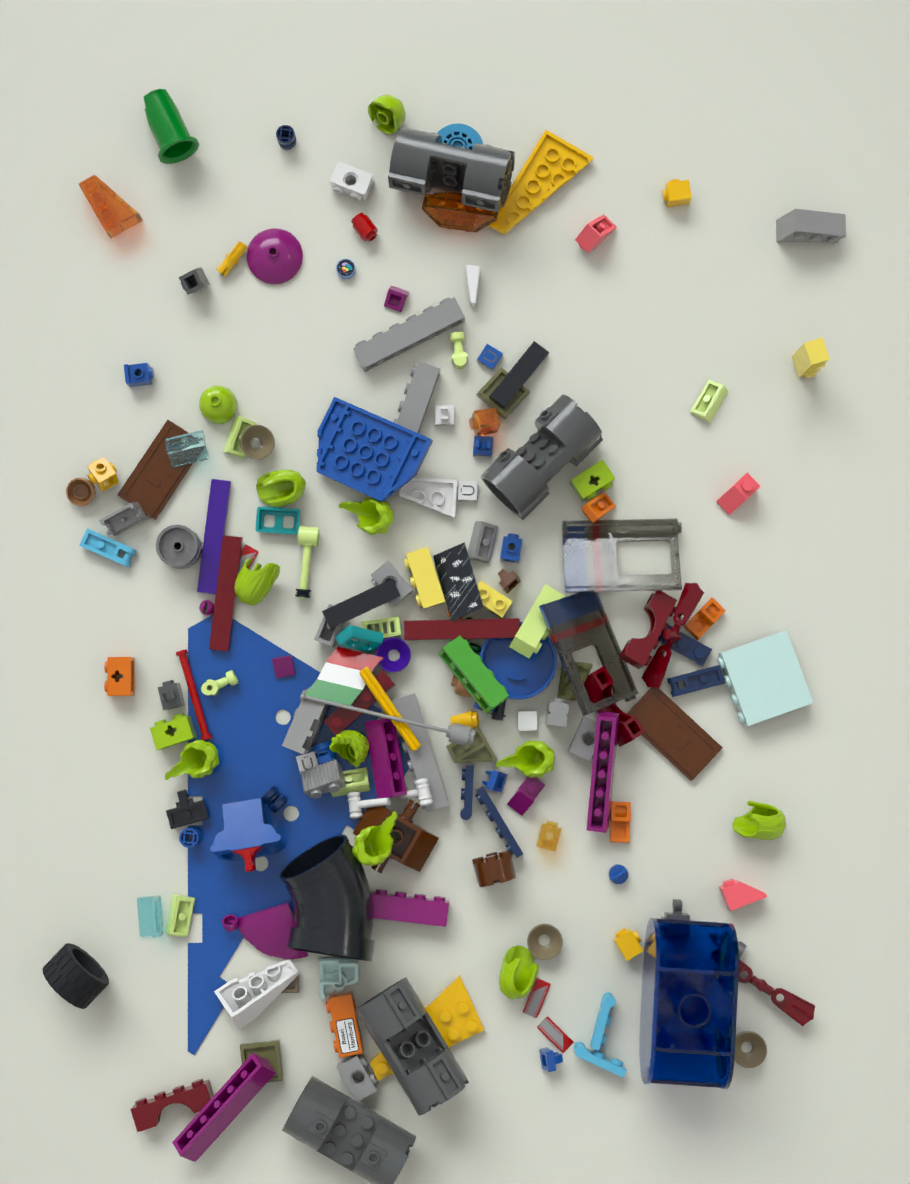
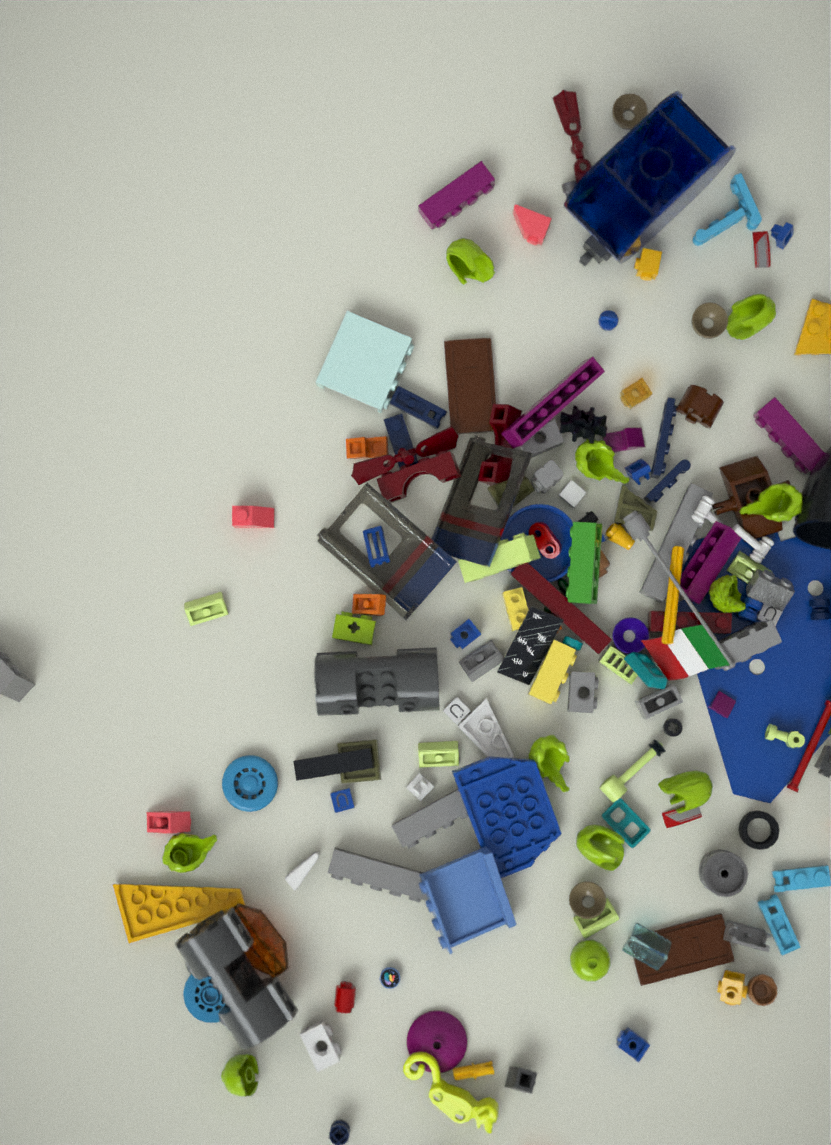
camera: 135 degrees left, 0 degrees up
(119, 595) = (802, 878): none -> medium azure plate
(179, 615) = (774, 834): none -> black tyre
(210, 609) = (738, 802): magenta hinge -> none
(213, 535) = (686, 857): dark purple tile -> none
(225, 593) = (718, 802): dark red tile -> none
(230, 228) = (453, 1098): none -> neon yellow animal
(303, 612) = (676, 722): none -> black bush
(343, 365) = (466, 898): none -> medium blue panel
(361, 603) = (622, 696): black tile -> none
(396, 298) = (372, 916): magenta slope -> none
(431, 611) = (572, 643): none -> teal tile
(452, 449) = (438, 754): none -> yellowish green slope
(459, 357) = (366, 822): yellowish green leg -> none
(483, 446) = (412, 735): blue tile -> none
(484, 421) = (394, 751): clear orange brick -> none
(509, 580) = (489, 612): reddish brown tile -> none
(516, 668) = (546, 539): none -> red plate
(536, 998) = (751, 287): sticker -> none
(564, 223) = (187, 852): none -> lime hair
(564, 309) = (249, 783): none -> dark azure wheel
(566, 776) = (583, 424): none -> black gear
(620, 544) = (379, 559): none -> blue tile
(620, 822) = (572, 356): orange slope -> none
(677, 193) = (75, 795): yellow brick -> none
(810, 358) = (101, 566): light yellow brick -> none
(815, 865) = (457, 195): none -> magenta brick

